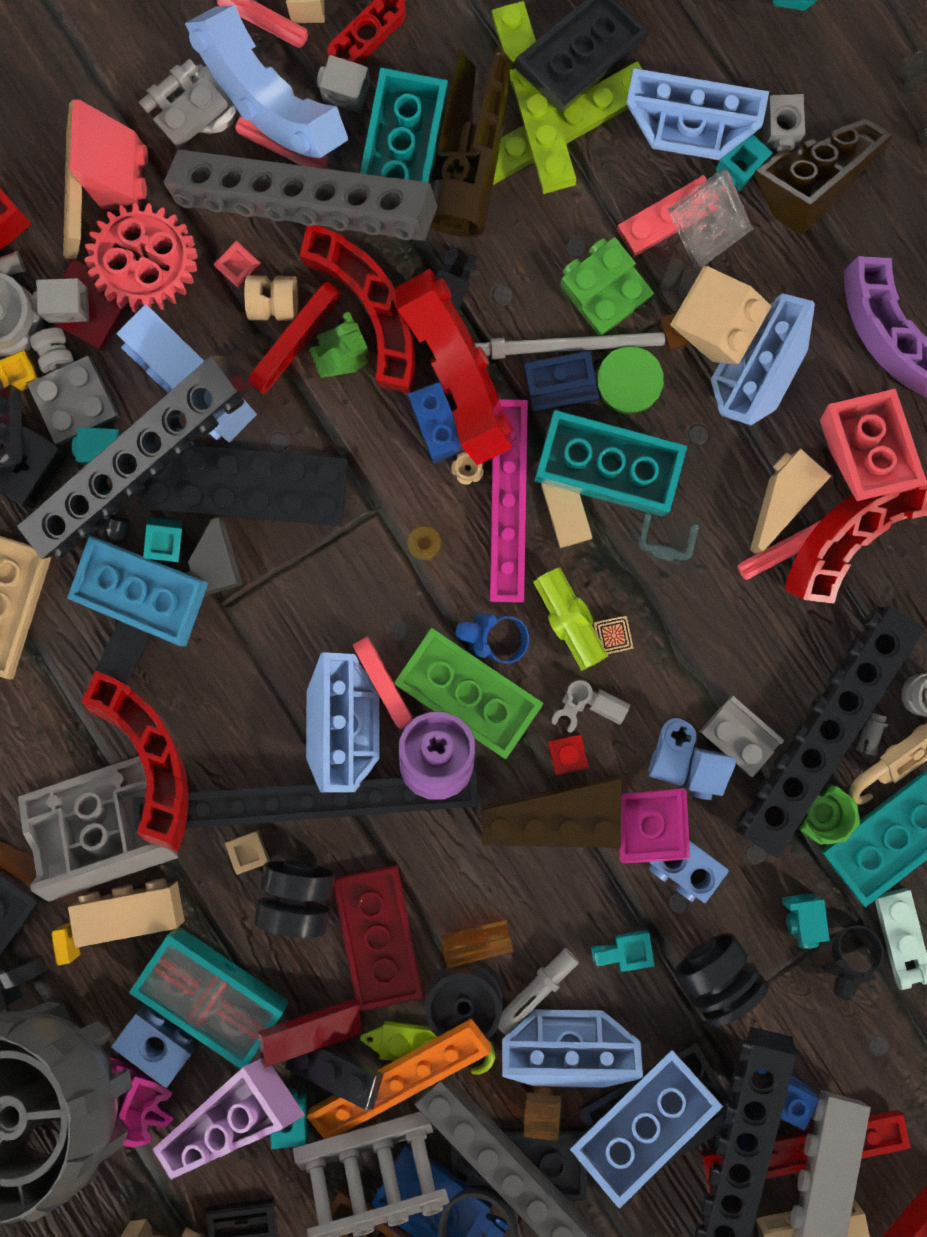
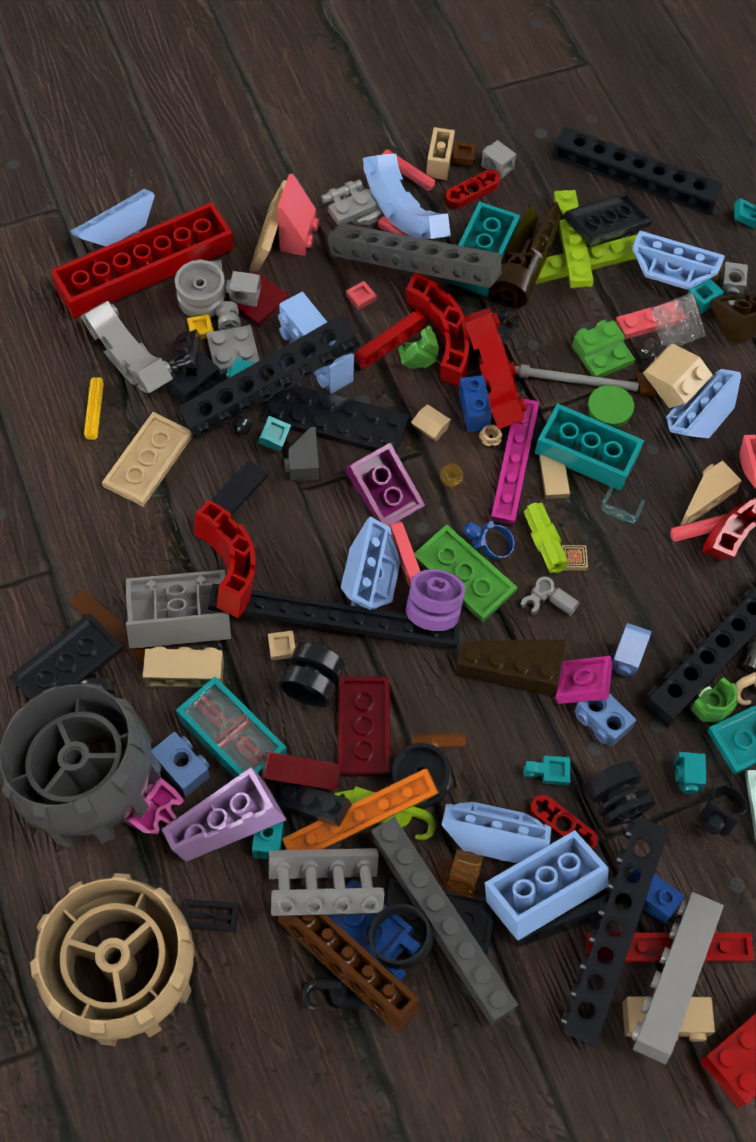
camera: 10 degrees right, 25 degrees down
(64, 944) = (133, 679): yellow tile -> none
(137, 590) = (248, 462): dark azure tile -> none
(154, 232) = (299, 272): coral gear -> none
(271, 297) = (380, 313): tan wheel -> none
(333, 583) = (384, 485): none -> magenta slope
(344, 83) = (456, 208): light grey brick -> none
(379, 466) = (431, 422): none -> tan piece
(545, 982) = (484, 780): light grey pin -> none
(561, 382) = (566, 393): dark blue plate -> none
(568, 754) = (528, 627): red plate -> none
(672, 759) = (606, 639): medium blue piece -> none
(679, 1020) = (553, 806): none -> red beam
(741, 735) = (664, 644): light grey plate -> none

